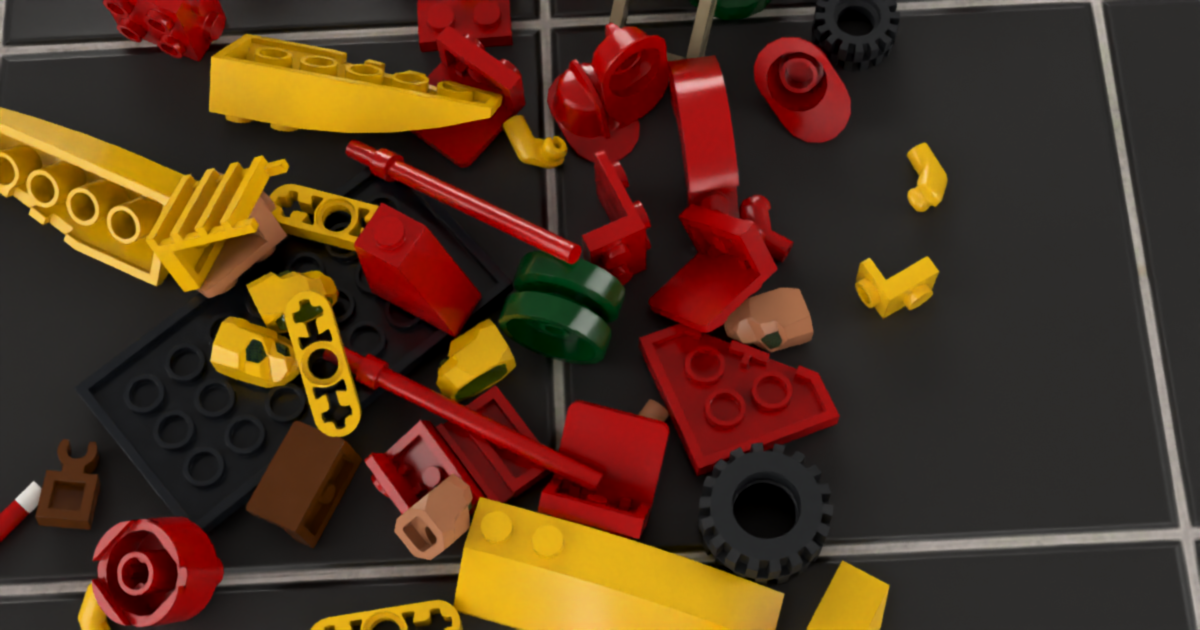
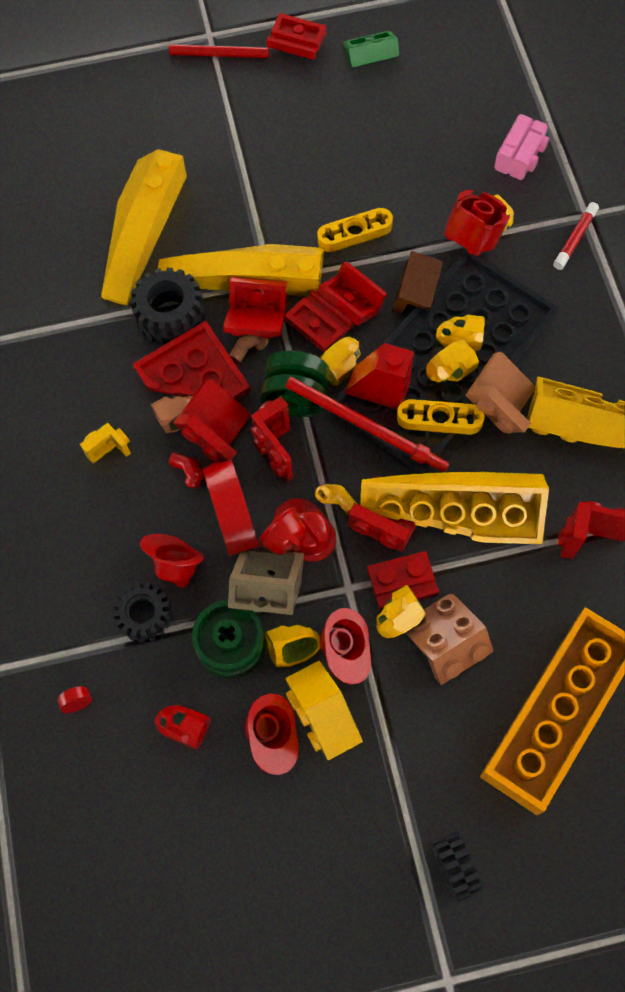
camera: 170 degrees right, 0 degrees up
(70, 494) = (539, 261): reddish brown plate -> none
(205, 215) = (516, 382): yellow plate -> none
(345, 397) = (421, 336): yellow beam -> none
(375, 373) = (393, 336): red bar -> none
(436, 519) = (338, 265): nougat rock -> none
(931, 179) = (87, 514): yellow arm -> none

